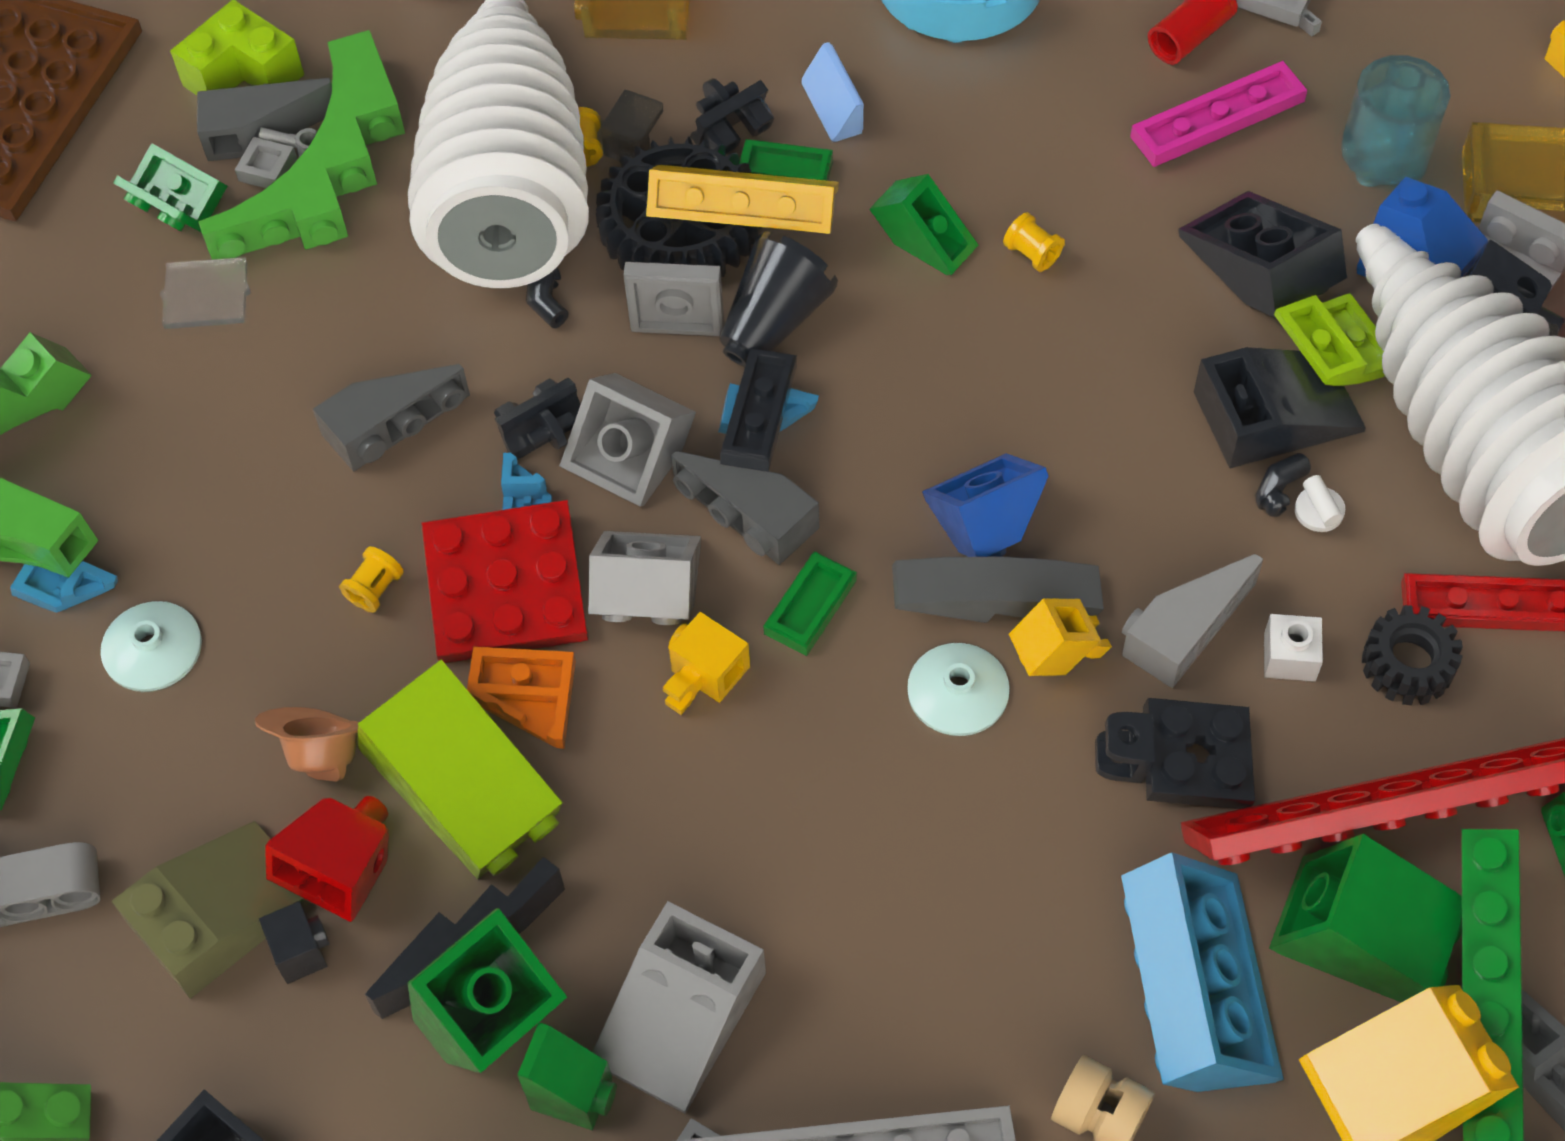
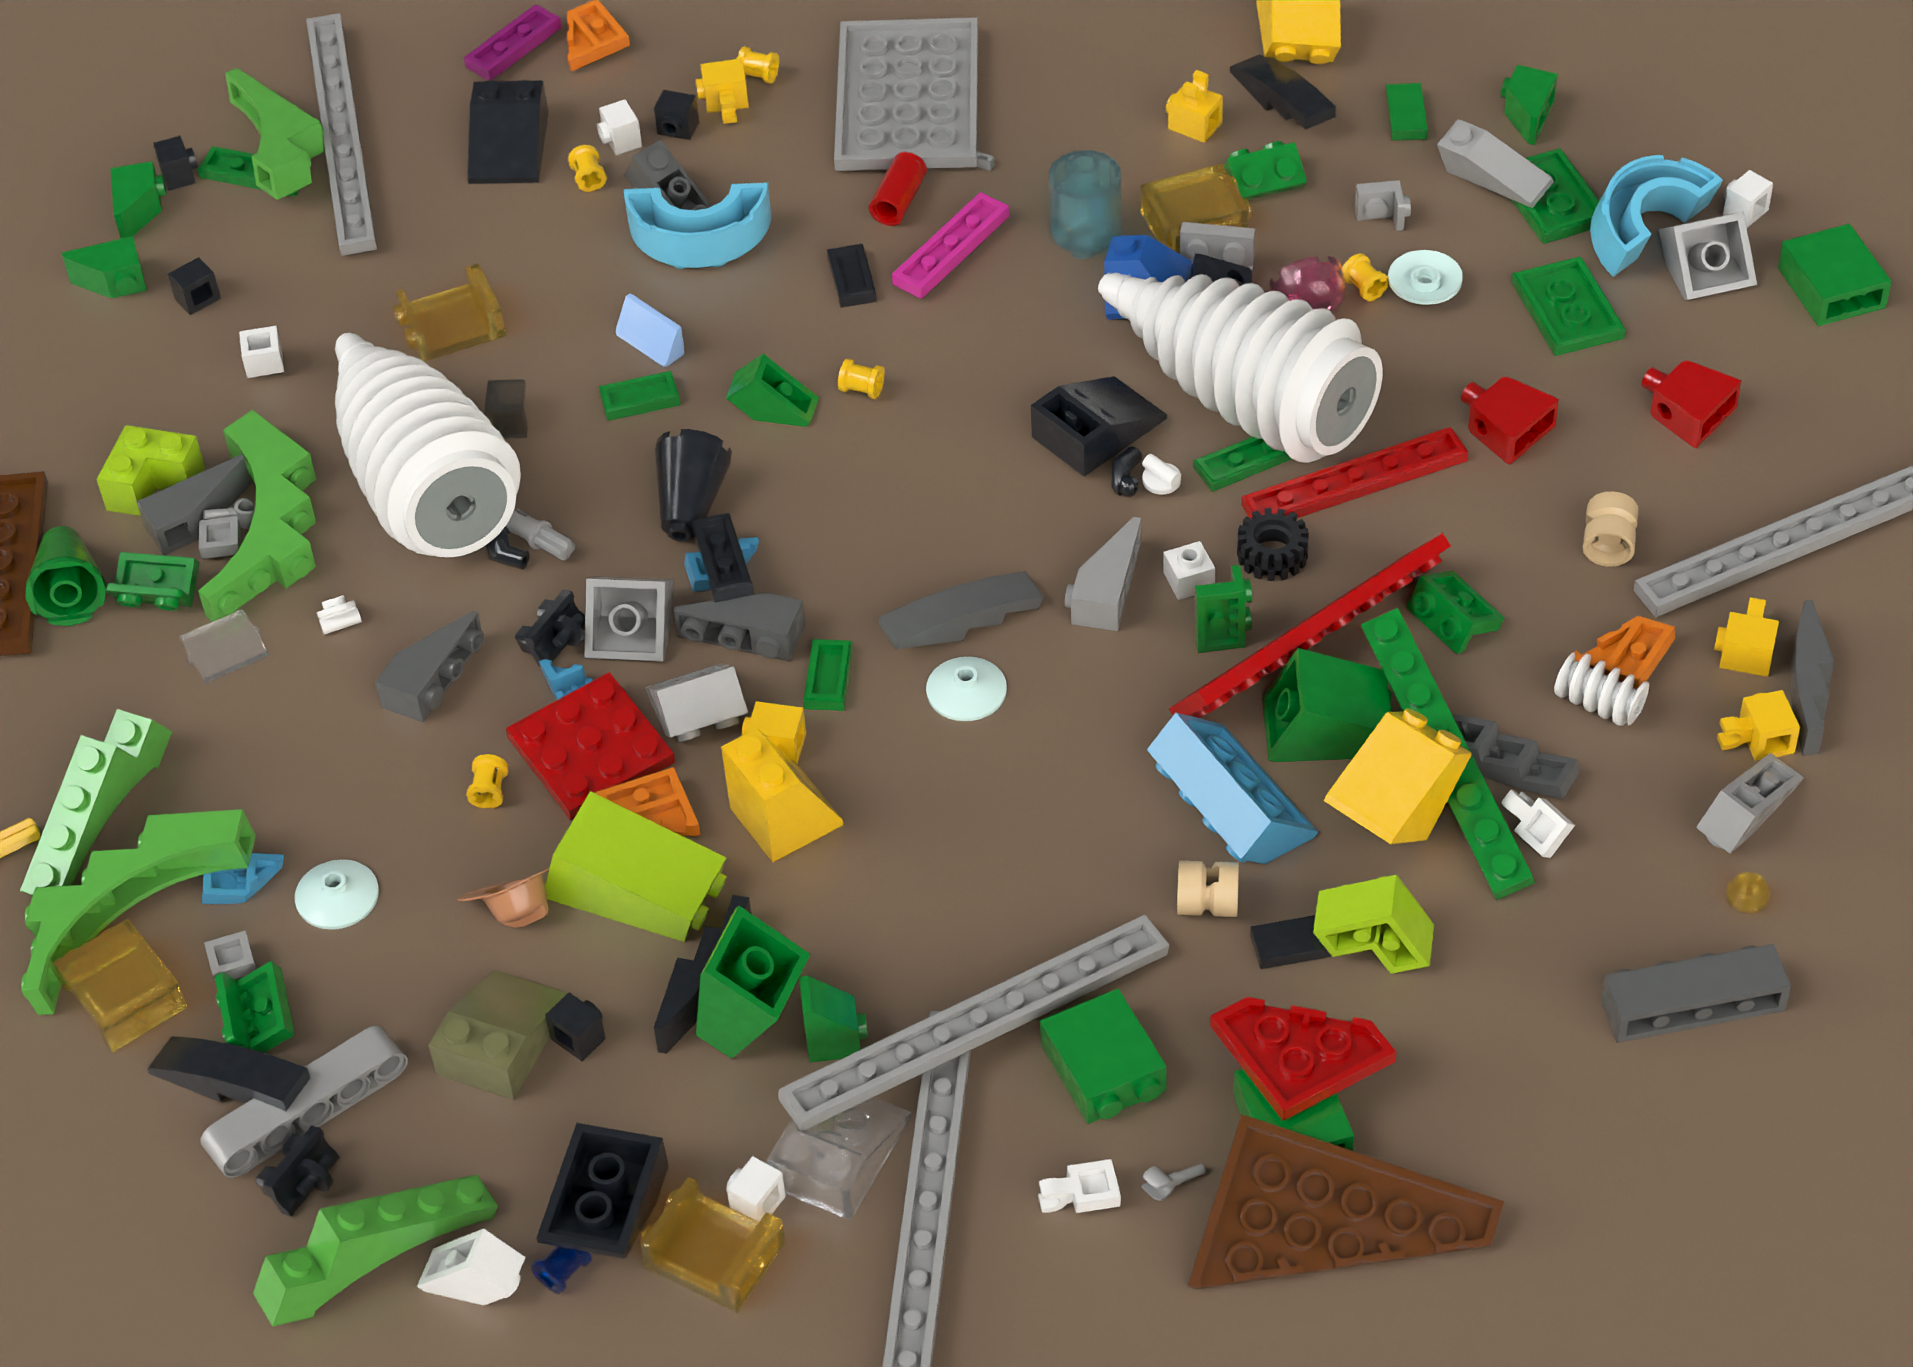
camera: 25 degrees left, 10 degrees down
(83, 149) = (64, 579): none -> green cone
(331, 854) = (571, 960): red torso -> none
(333, 304) = (338, 614): none -> white plate
(589, 294) = (540, 534): none -> light grey axle
(665, 744) = (774, 796): none -> yellow slope
(666, 238) = (579, 452): black gear -> none
(674, 298) = (614, 508): light grey tile -> none
(679, 1006) = (884, 945): light grey slope -> none
(726, 107) = (572, 371): black hips -> none
(741, 198) = (629, 421): yellow panel -> none
(988, 504) = (925, 559): blue slope -> none
(1057, 637) = (1022, 623): yellow brick -> none
(1090, 108) = (851, 275): none -> black tile
(1158, 751) = (1131, 668): black plate -> none
(1267, 251) = (1037, 324): black slope -> none
(1302, 731) = (1223, 613): none -> green bracket
(1334, 339) = (1117, 363): lime slope -> none
(1418, 524) = (1237, 462): none -> green tile

